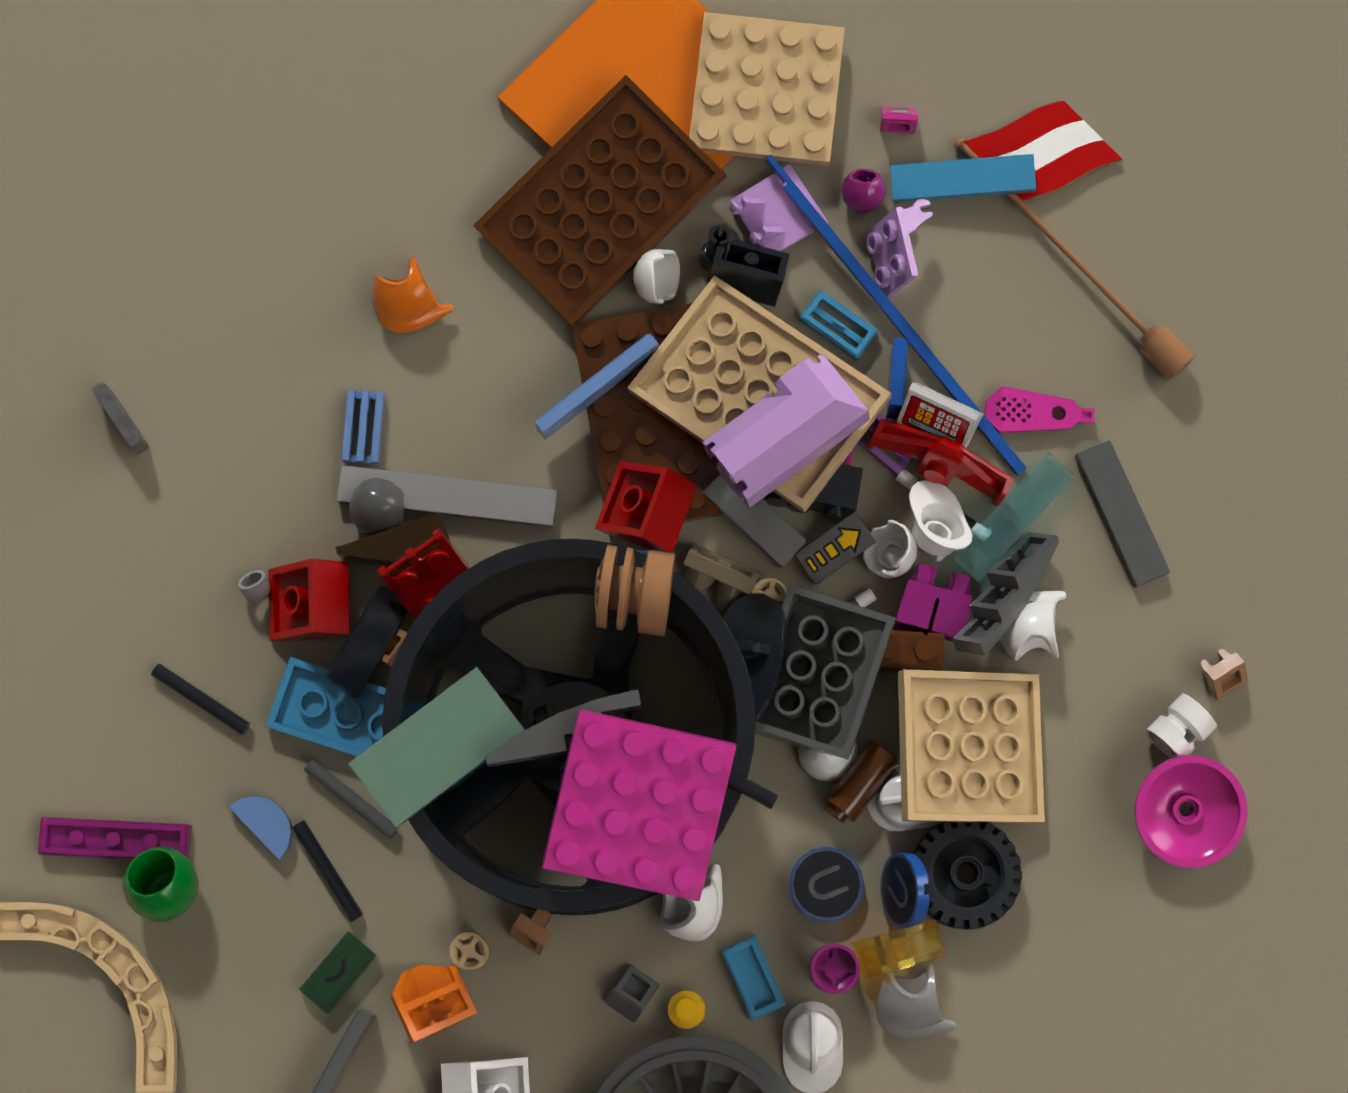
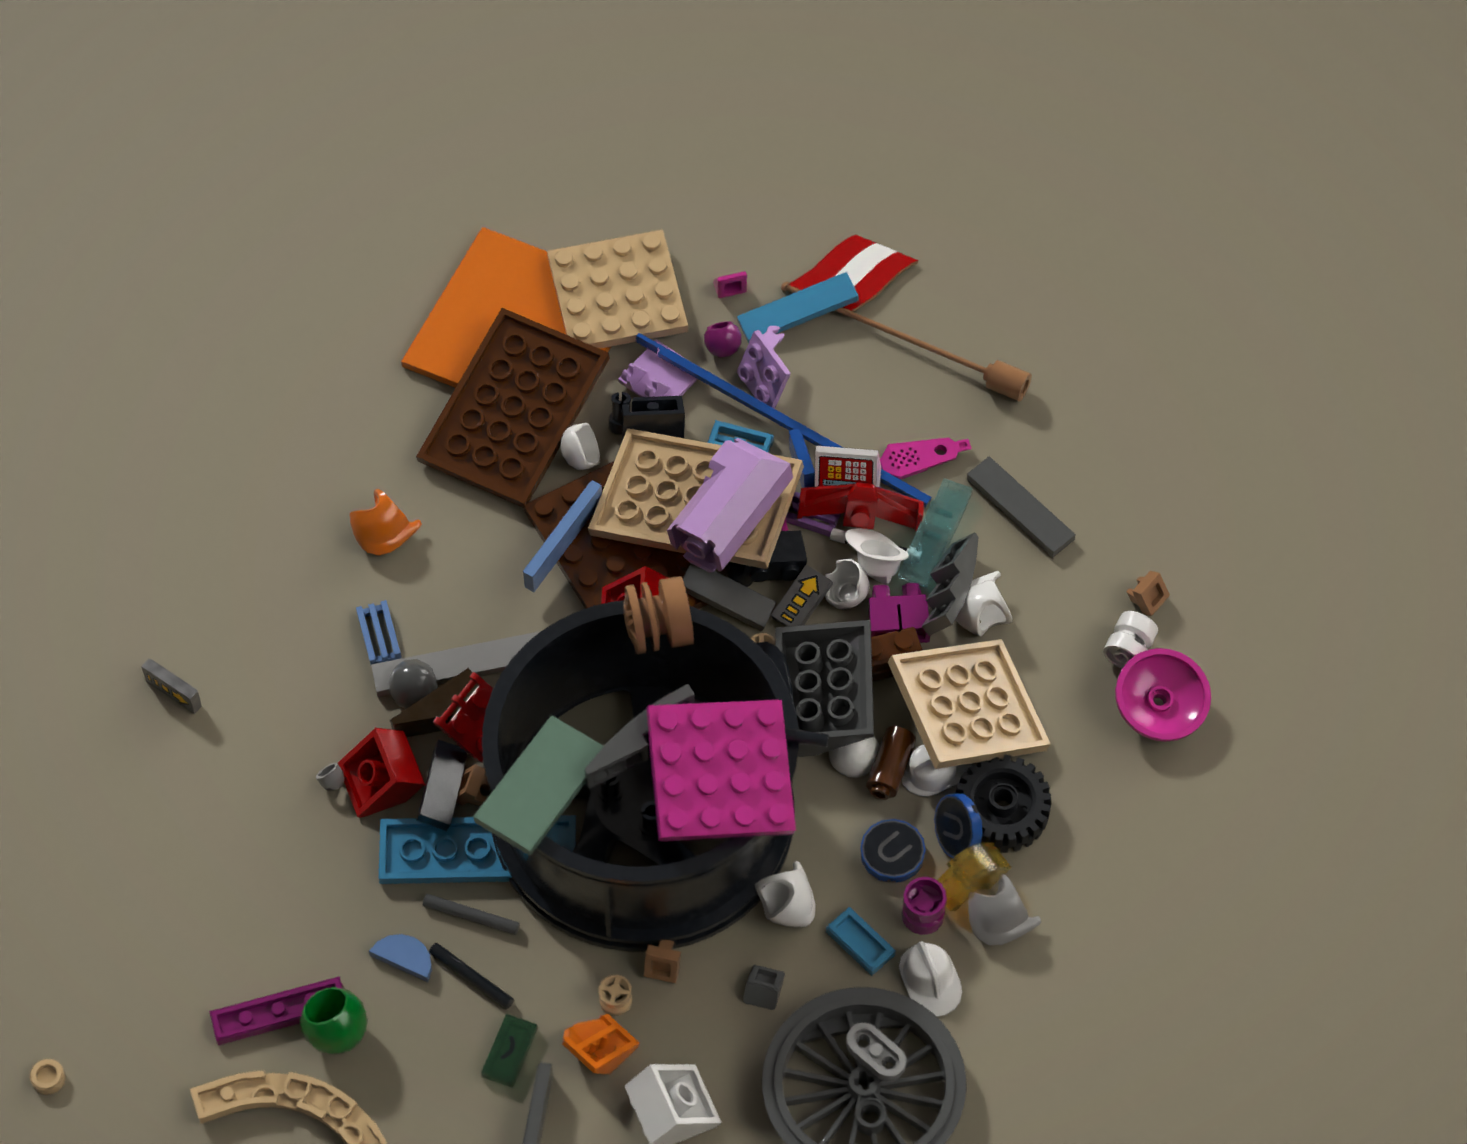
camera: 20 degrees left, 20 degrees down
(200, 699) = (314, 879): black bar -> none
(686, 1009) = (814, 981): yellow plate -> none

